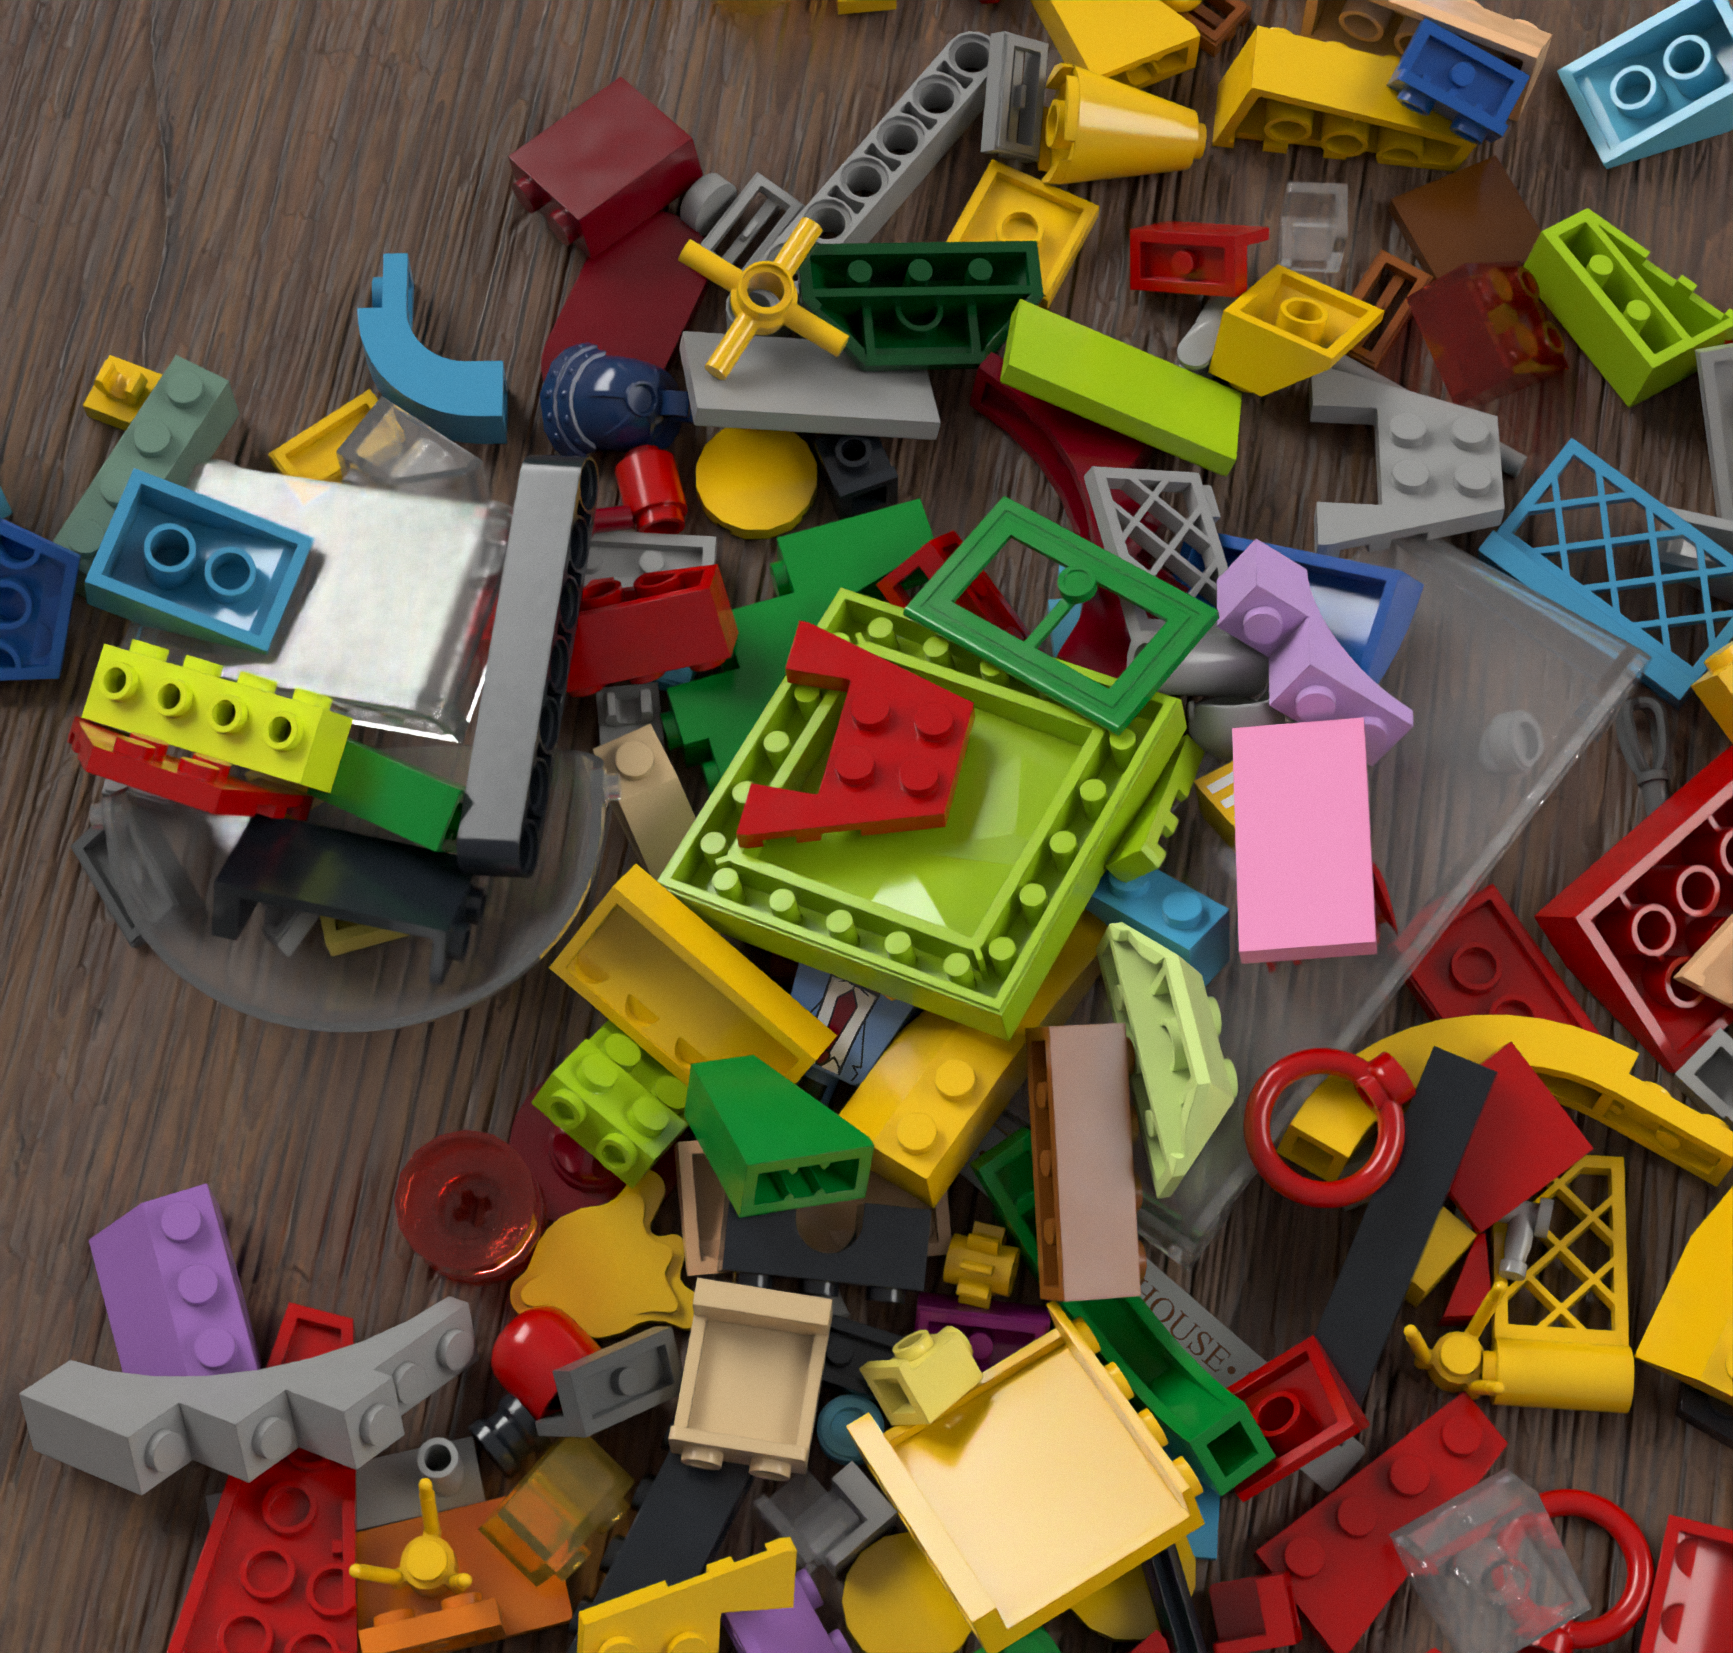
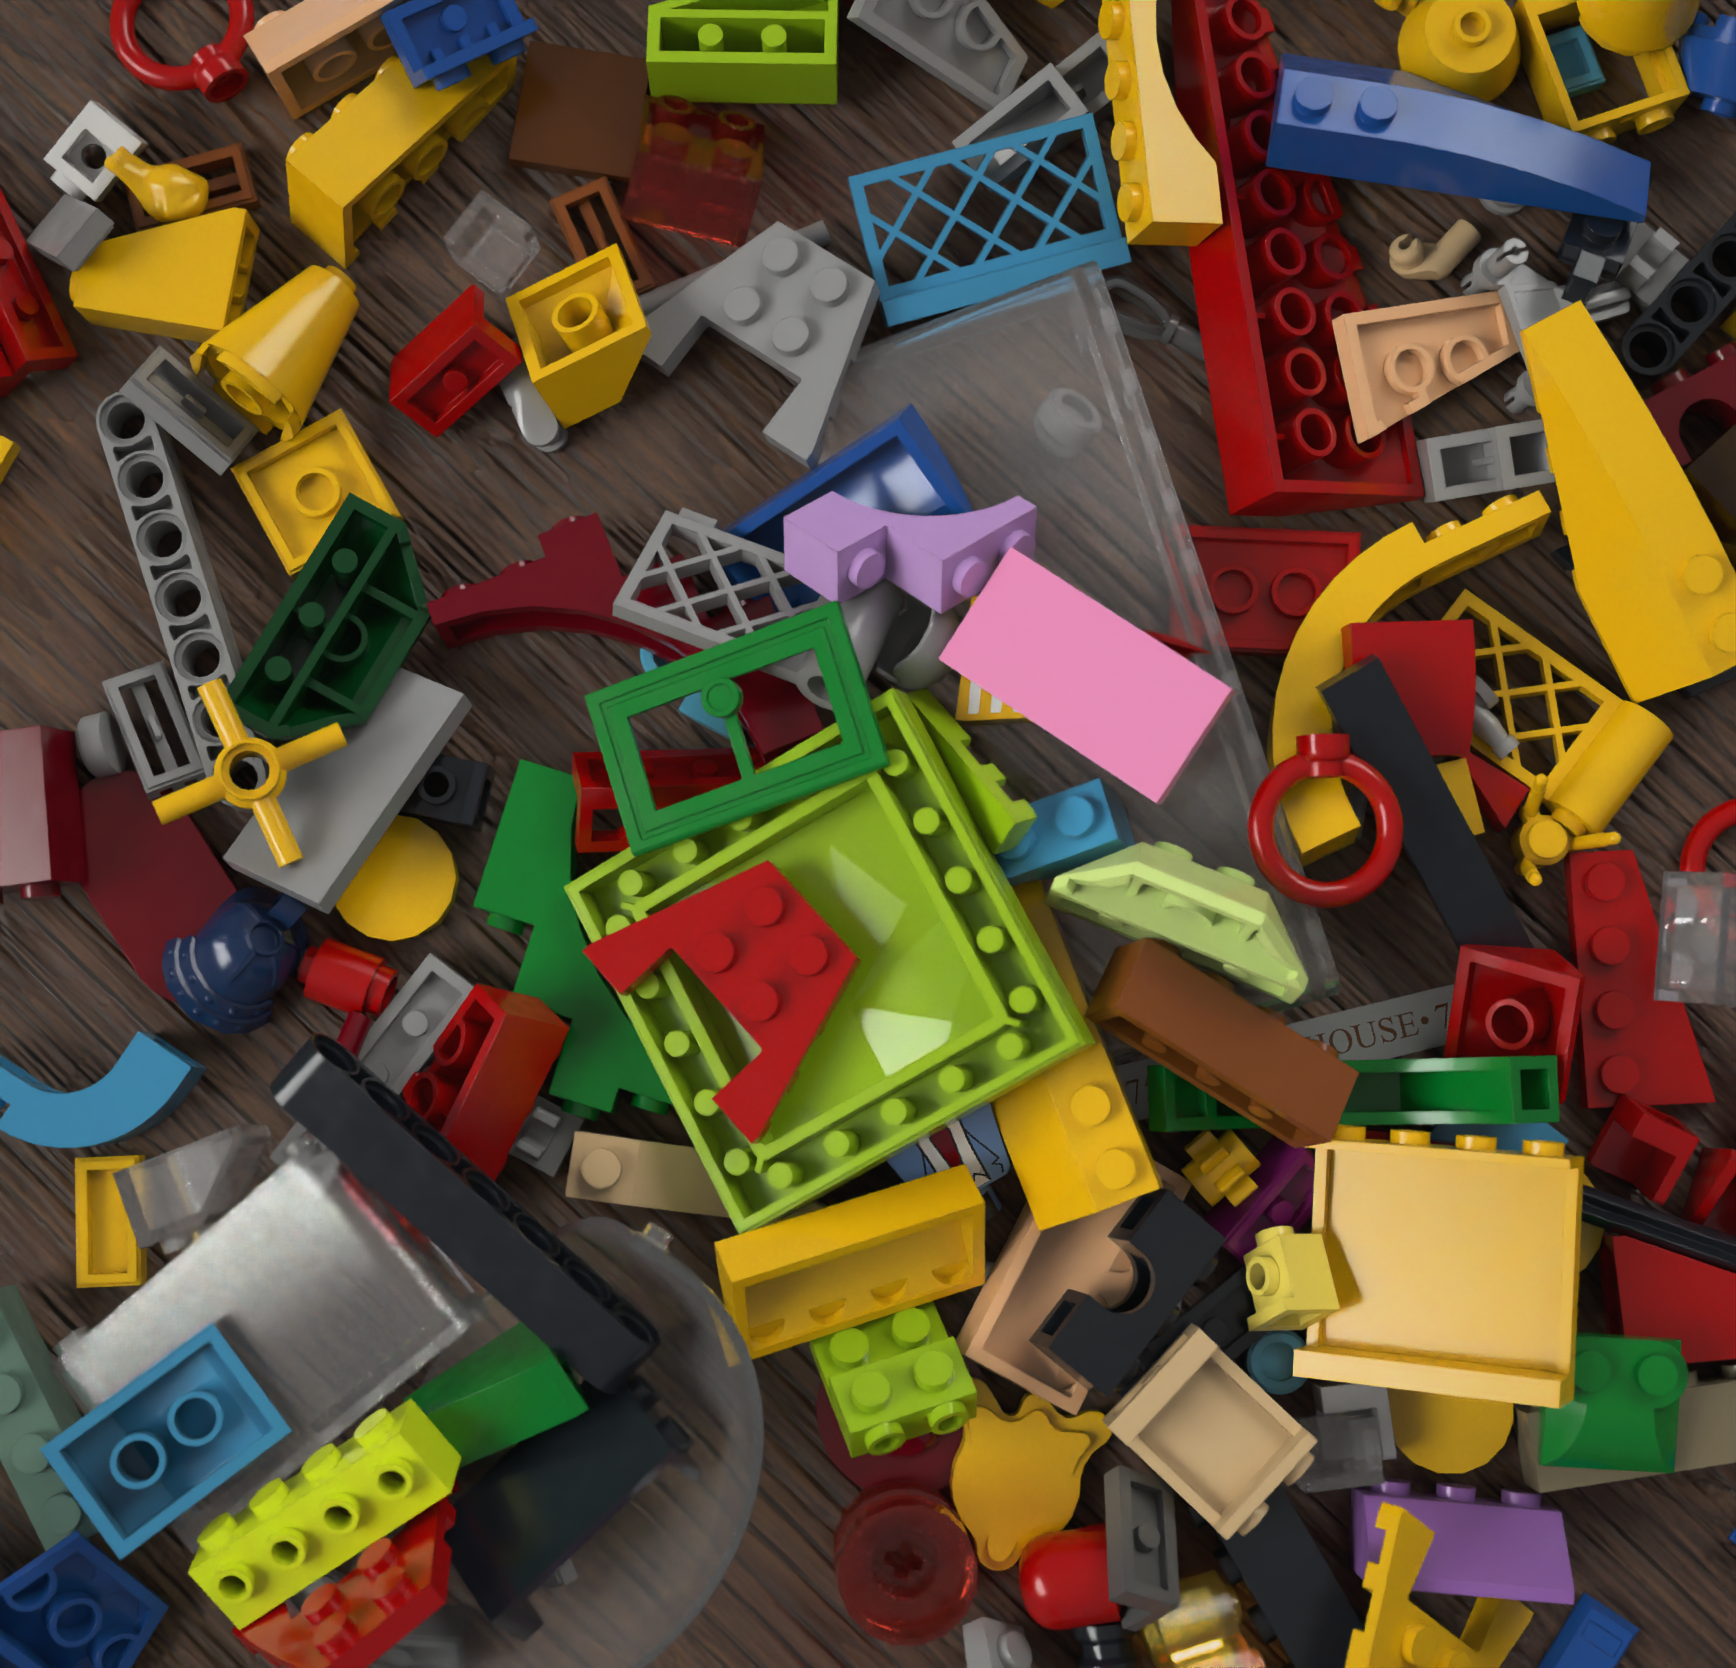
camera: 55 degrees left, 15 degrees up
(773, 1139) = (1027, 1285): green slope -> none
(1122, 388) = (538, 518): lime tile -> none

